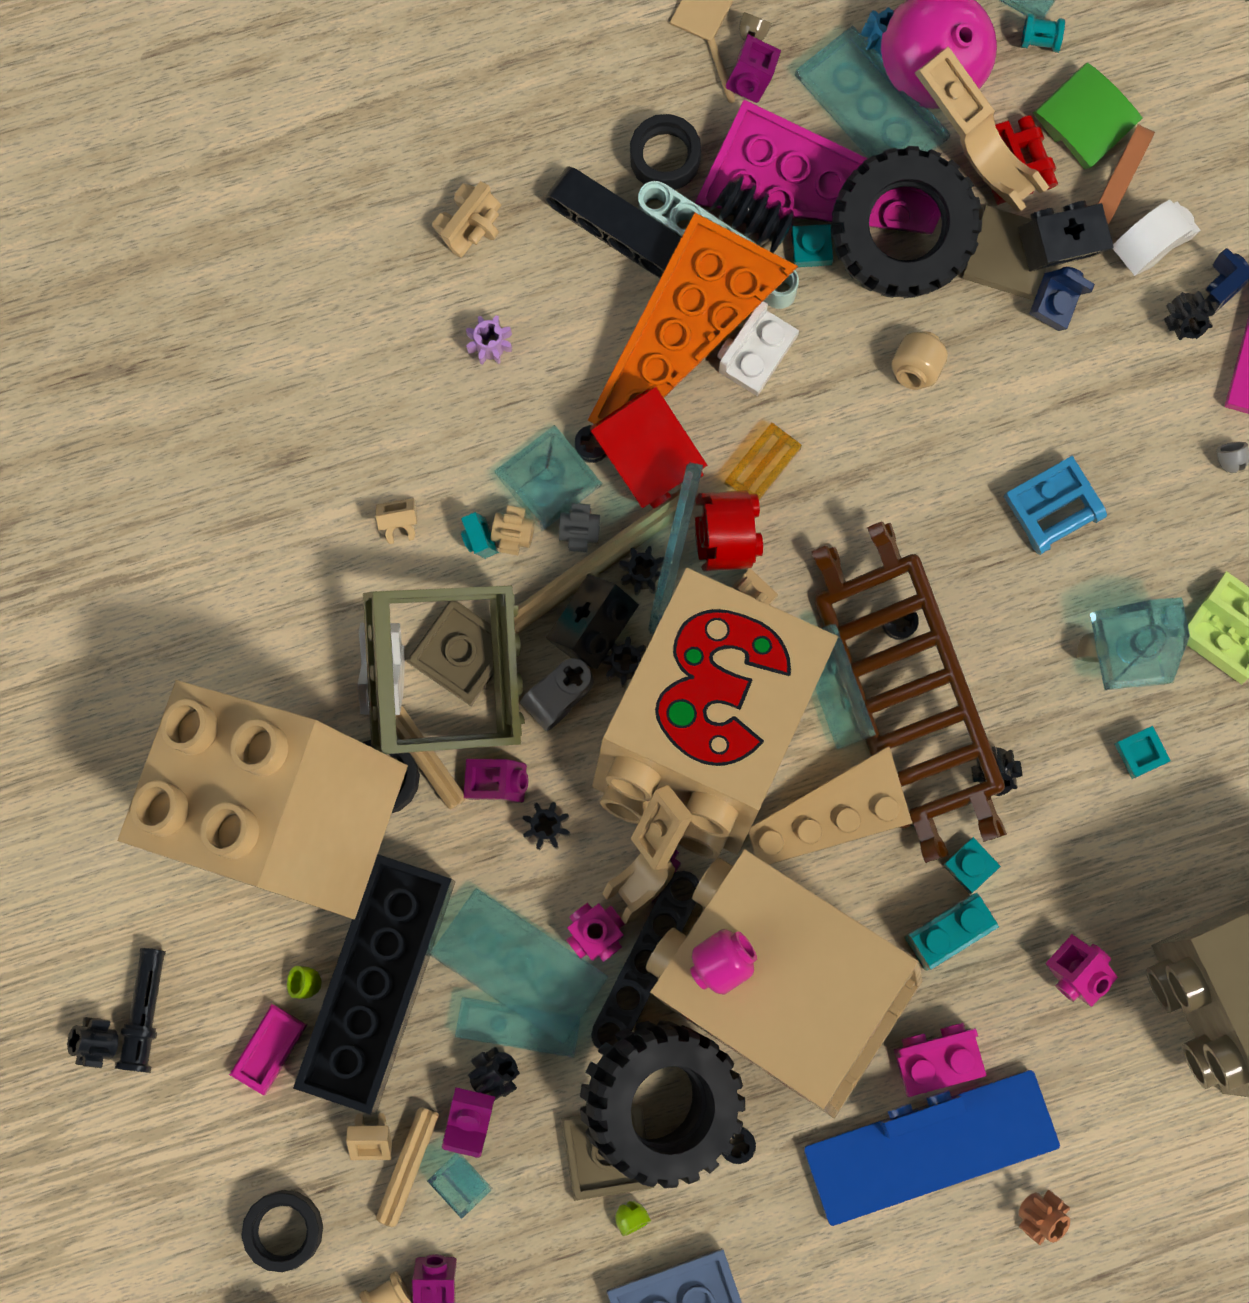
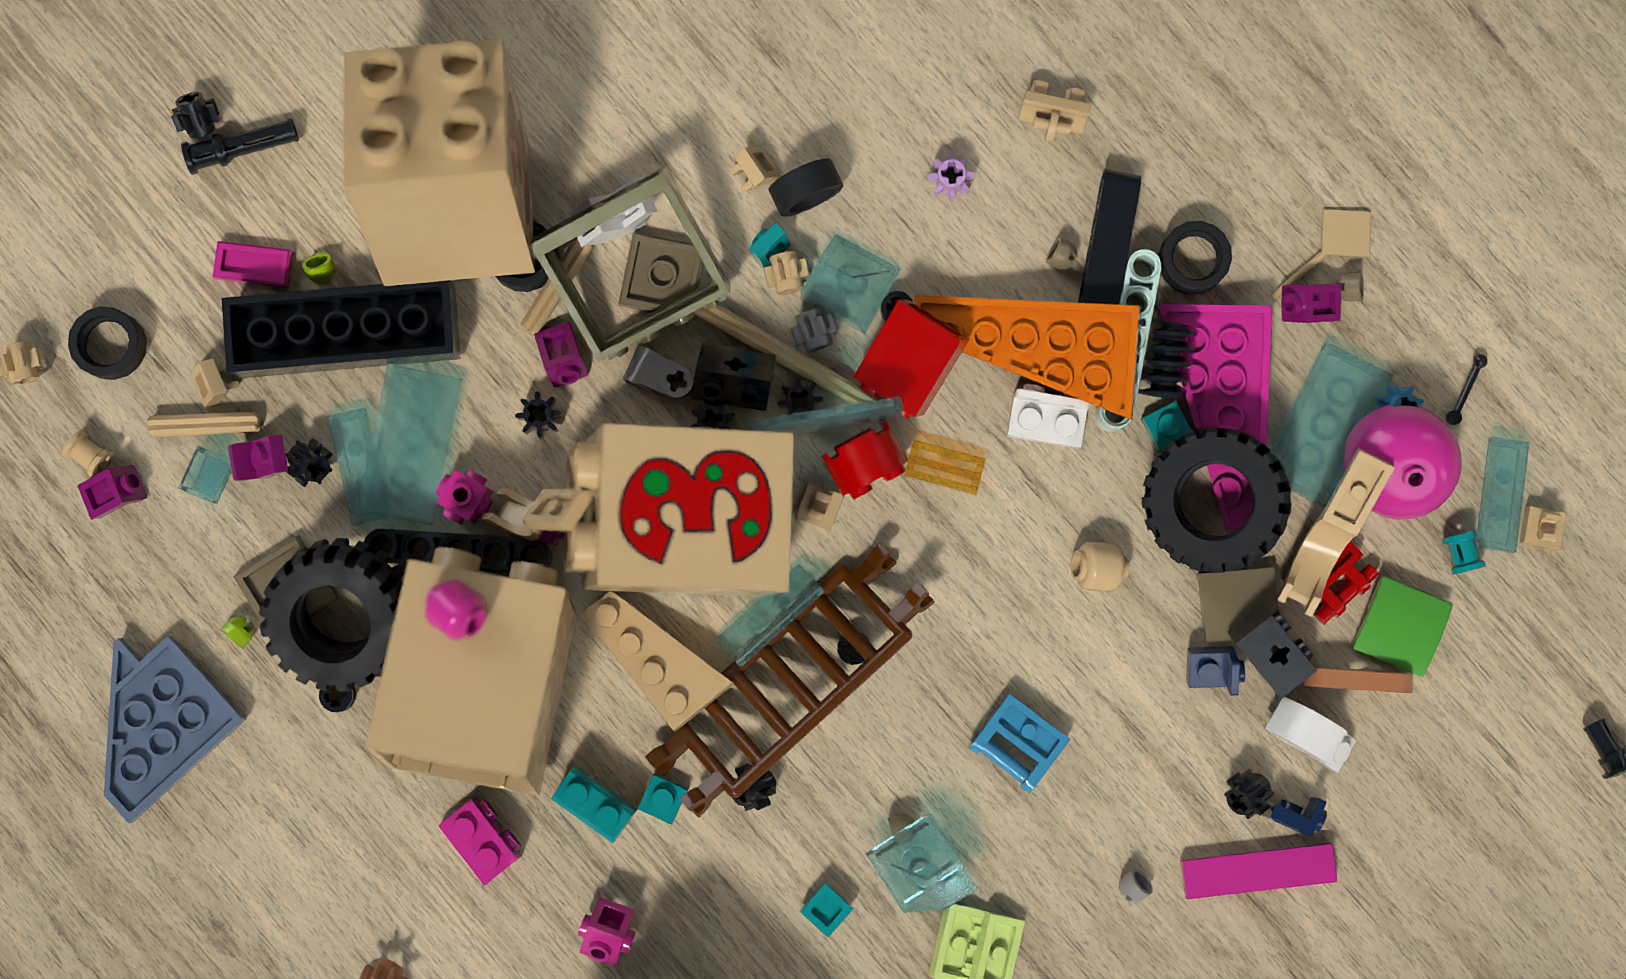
camera: 60 degrees right, 5 degrees up
(439, 475) = (806, 187): none -> black tyre
(606, 271) = (1060, 252): none -> dark tan hinge
(931, 1147) = (404, 863): blue bracket -> none

